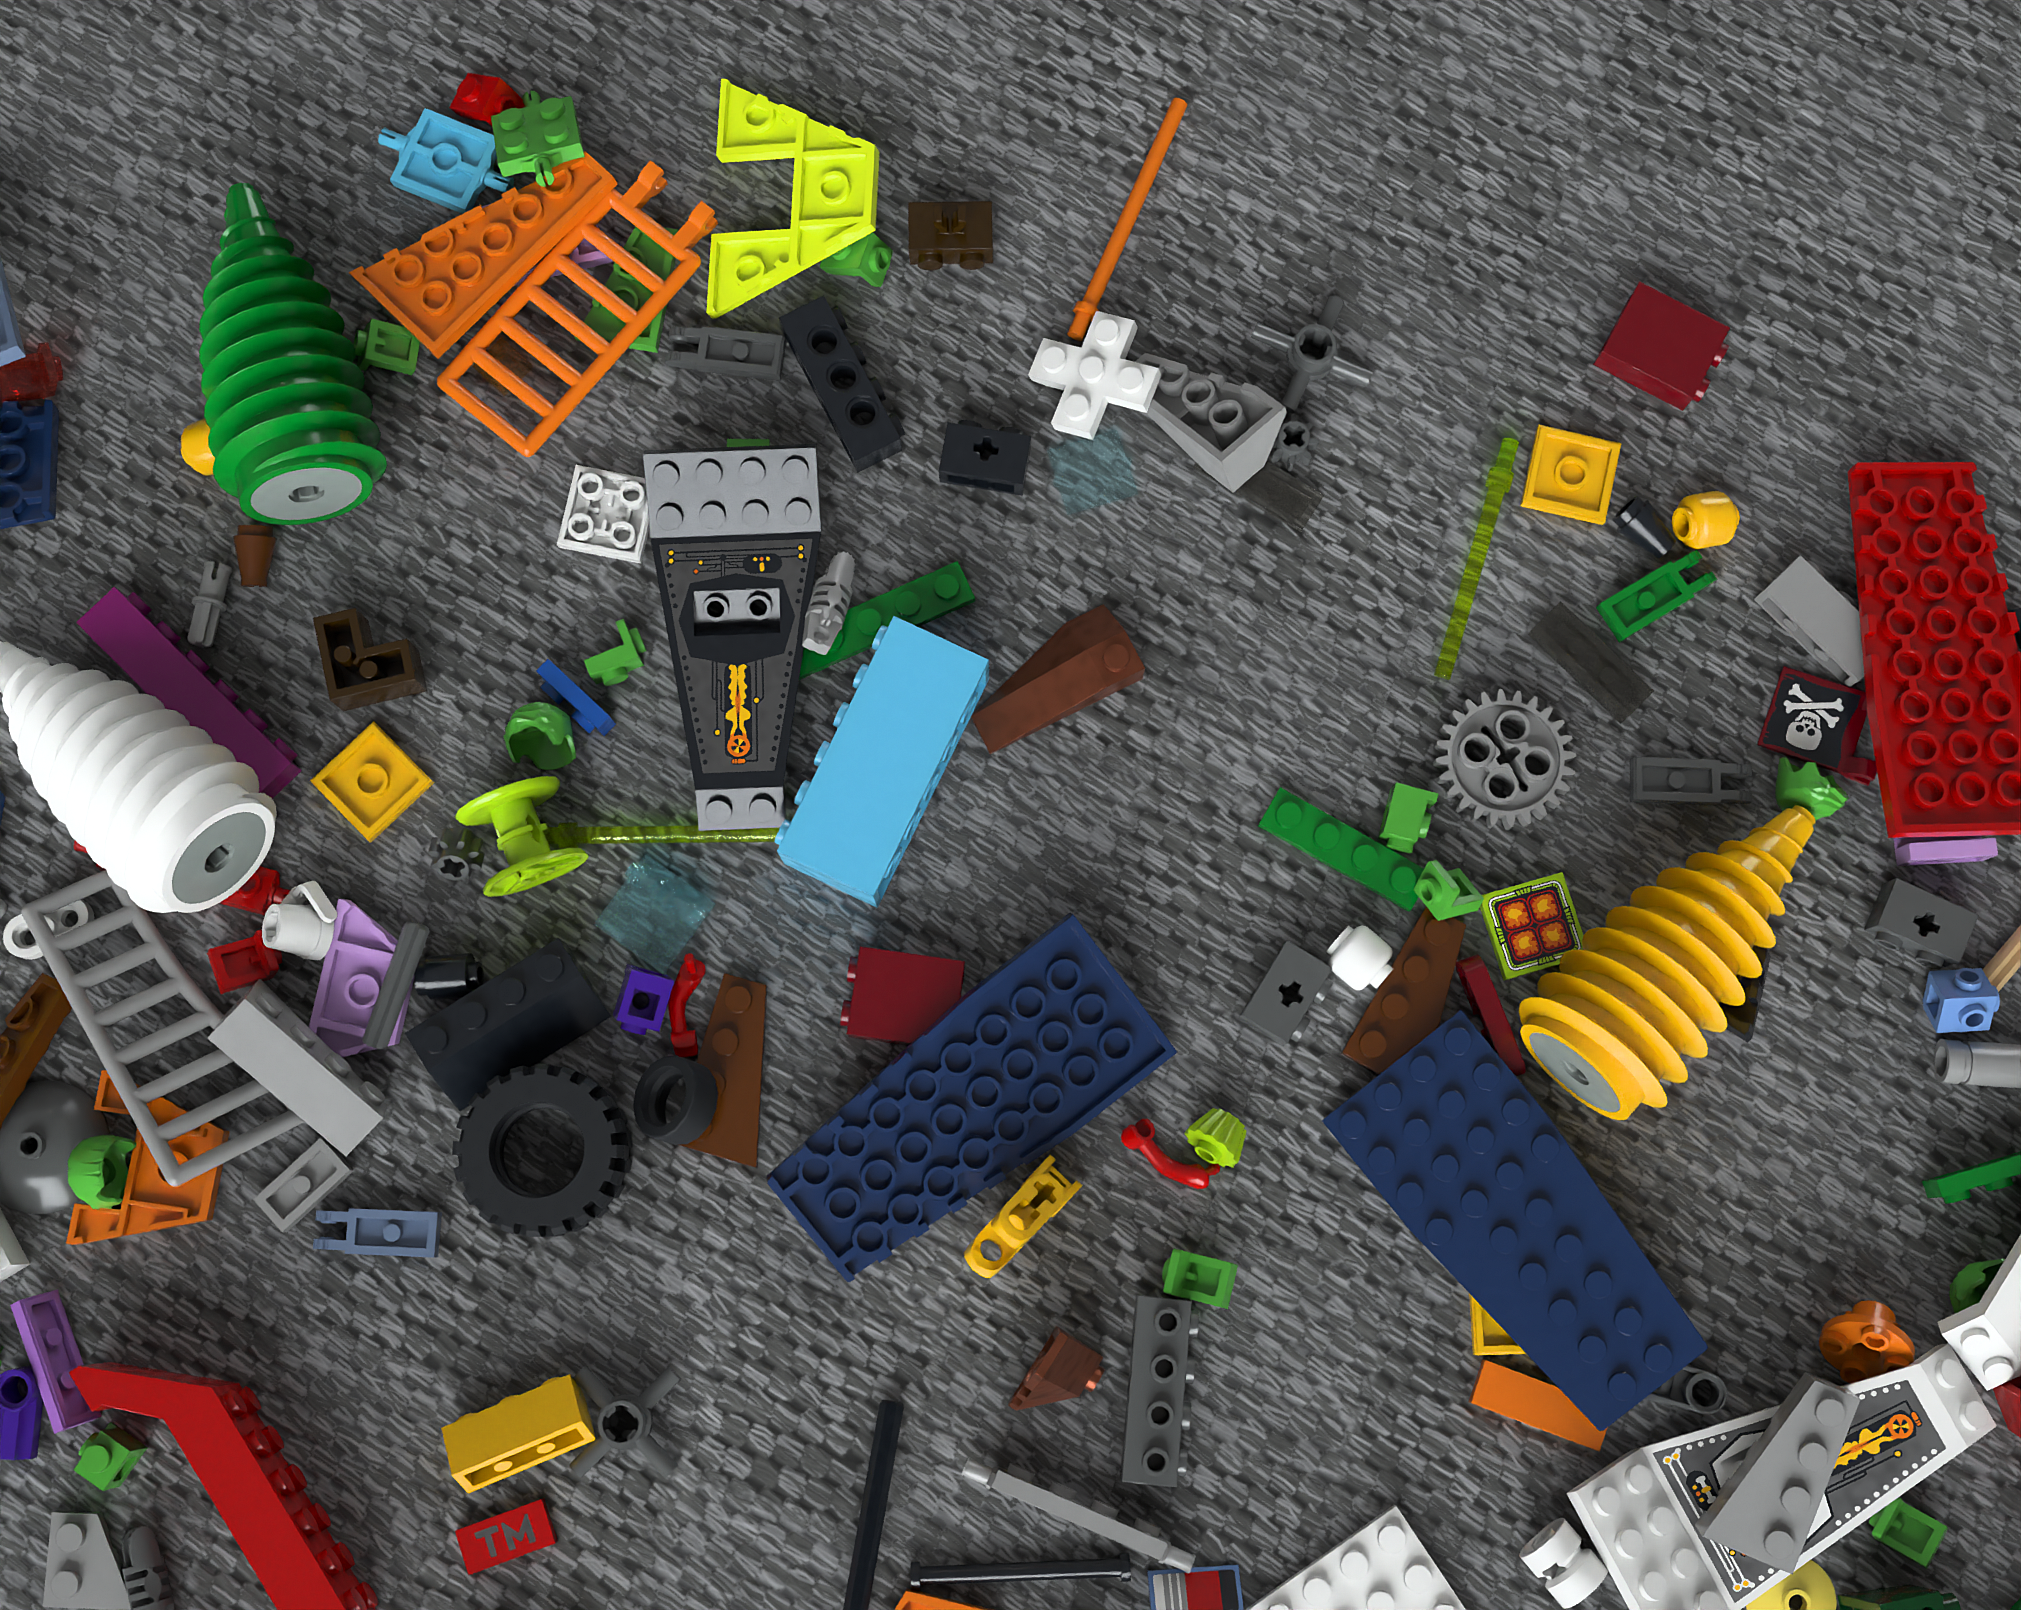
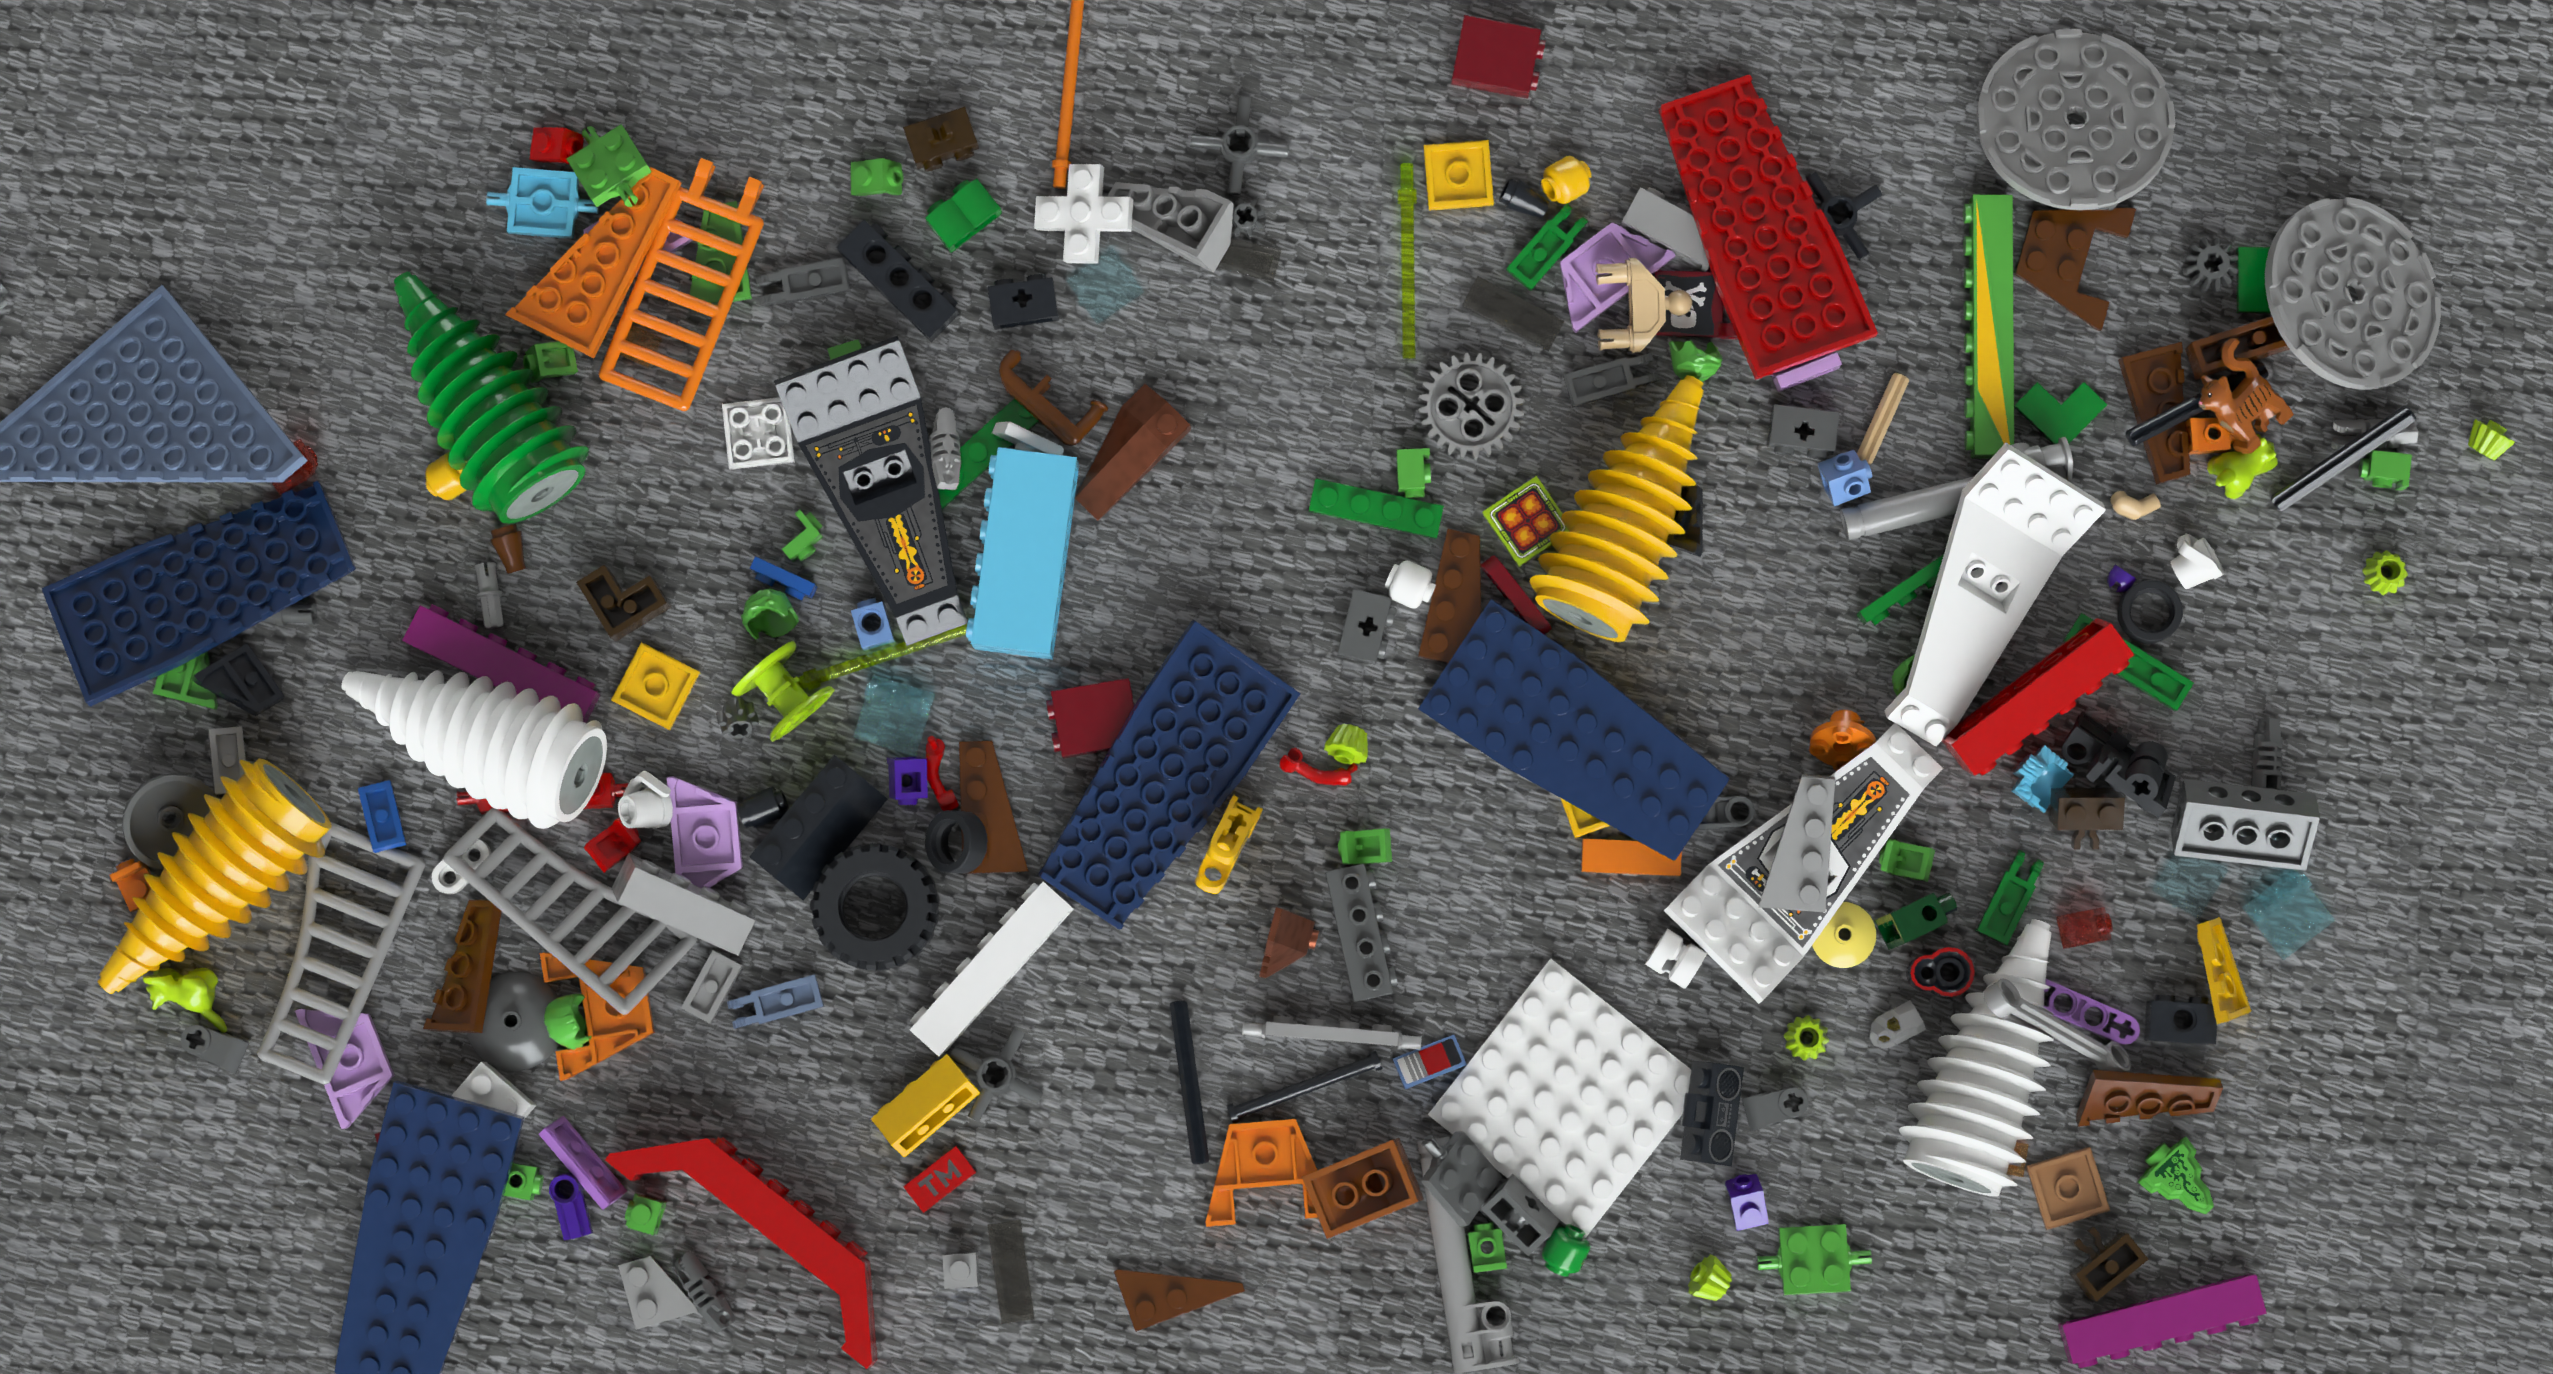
camera: 15 degrees left, 5 degrees up
(395, 985) = (729, 825): dark grey axle -> none
(663, 1280) = (991, 968): none -> white brick
(671, 809) = (877, 638): none -> medium blue brick
(830, 196) = (842, 137): neon yellow wing -> none
(931, 619) = (1025, 439): none -> white plate
(946, 331) = (963, 214): none -> green brick
(967, 594) = (1042, 409): none -> reddish brown piece
(1447, 892) = (1458, 517): bright green bracket -> none
(1724, 647) = (1609, 246): none -> lavender wing
(1765, 701) = (1646, 305): none -> tan connector

